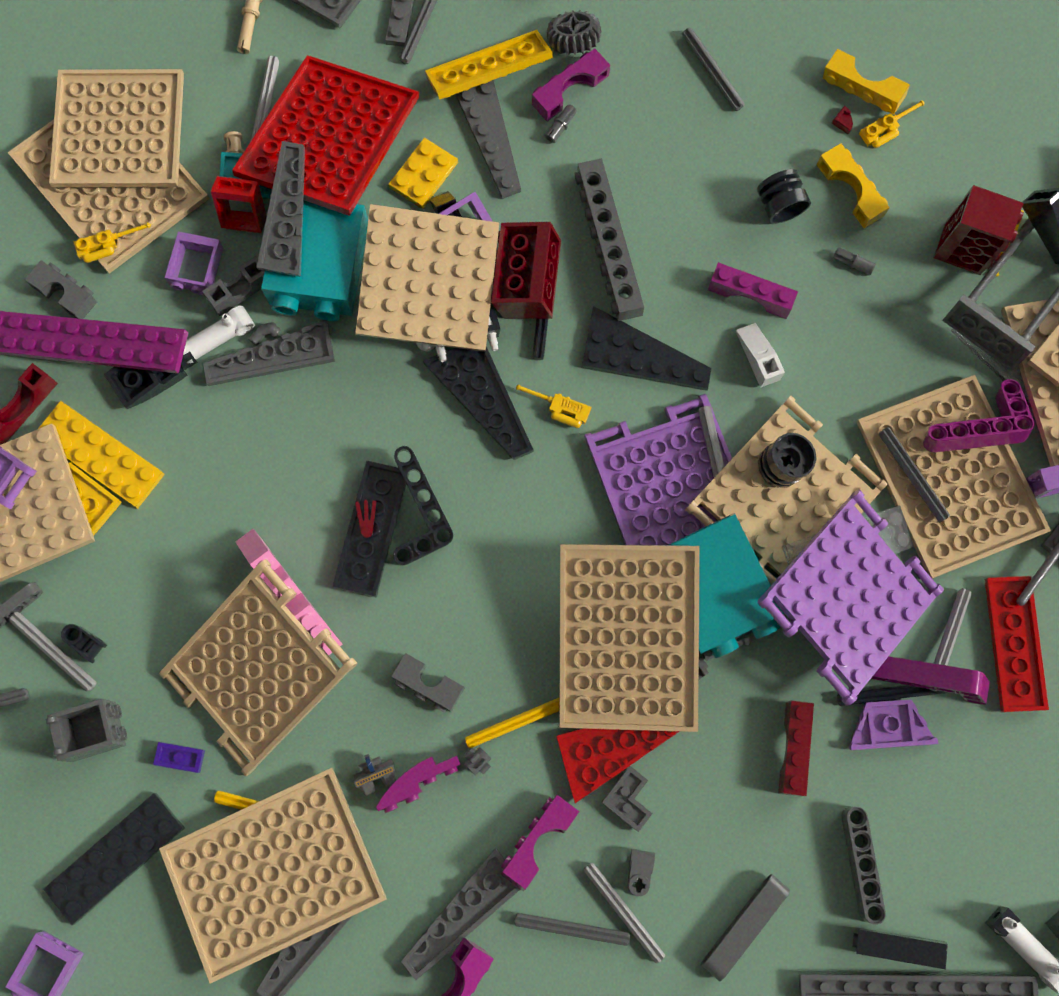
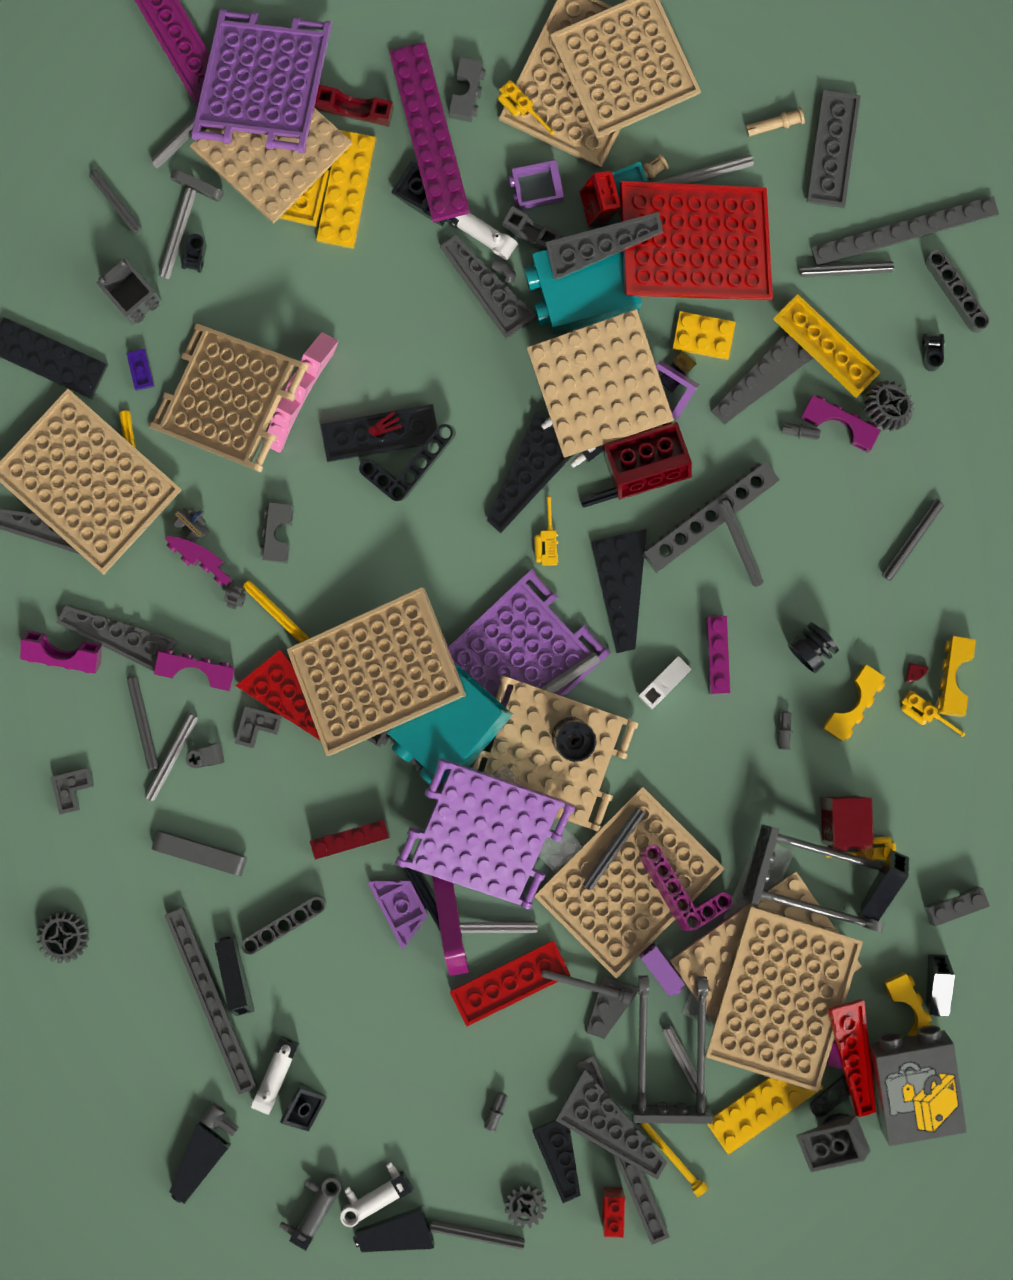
camera: 70 degrees right, 10 degrees up
(646, 219) = (740, 542): none -> dark grey axle

